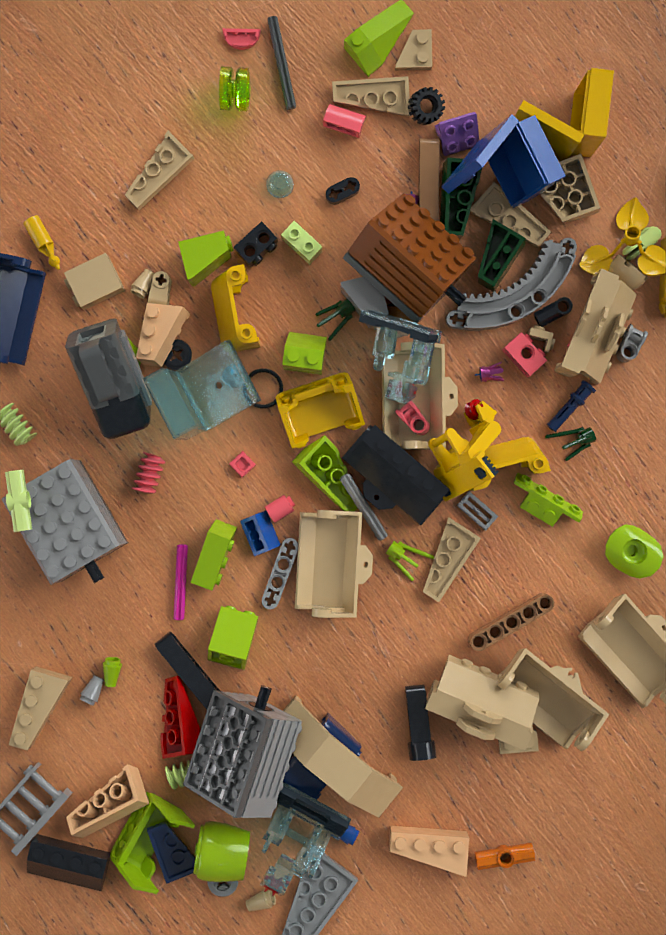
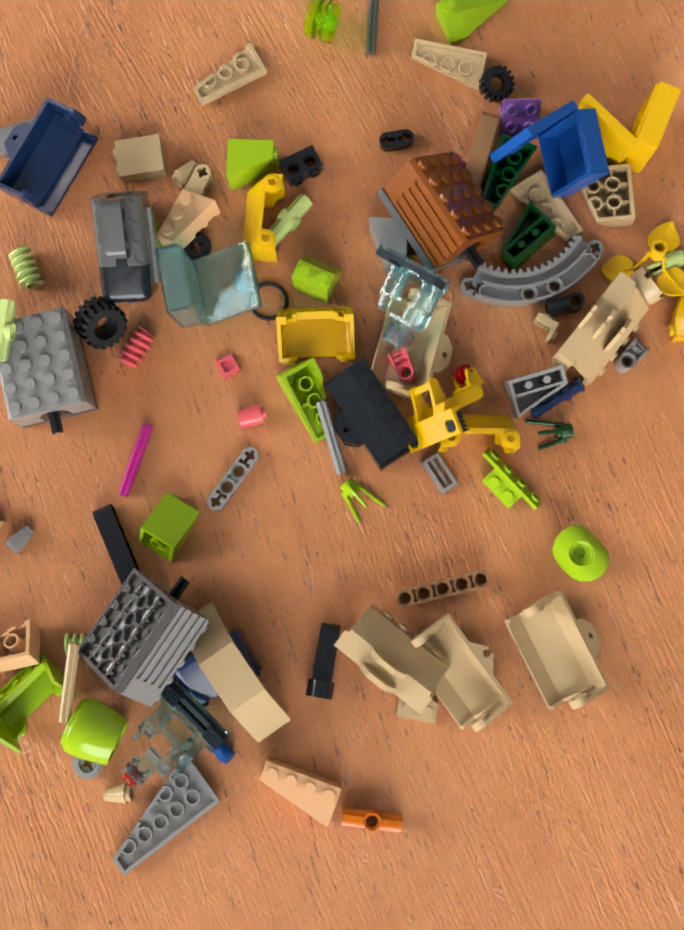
camera: 25 degrees right, 5 degrees down
(42, 239) = (104, 107): yellow wheel -> none
(106, 460) = (107, 333): none -> black tyre
(111, 670) = (44, 525): lime cone -> none
(172, 854) = (44, 715): dark blue wing -> none
(181, 725) = (94, 592): red wedge -> none
(185, 816) = (69, 682): none -> tan axle
(213, 555) = (174, 442): lime wedge -> none
(260, 300) = (290, 217): none -> yellowish green piece
(260, 533) = (225, 434): blue brick -> none
(280, 184) = (339, 119): clear light blue piece -> none
(301, 242) = (344, 175): yellowish green brick -> none
(331, 563) = (284, 479): tan piece -> none
(343, 309) = (366, 248): dark green plant -> none
(344, 120) = (415, 77): coral brick -> none
(417, 51) = (501, 34): tan wing -> none
(451, 555) = (405, 505): tan wing -> none
(487, 372) = (483, 343): flat silver piece -> none
(529, 365) = (524, 347): coral brick -> none
(545, 404) = (533, 388): none -> light grey wedge

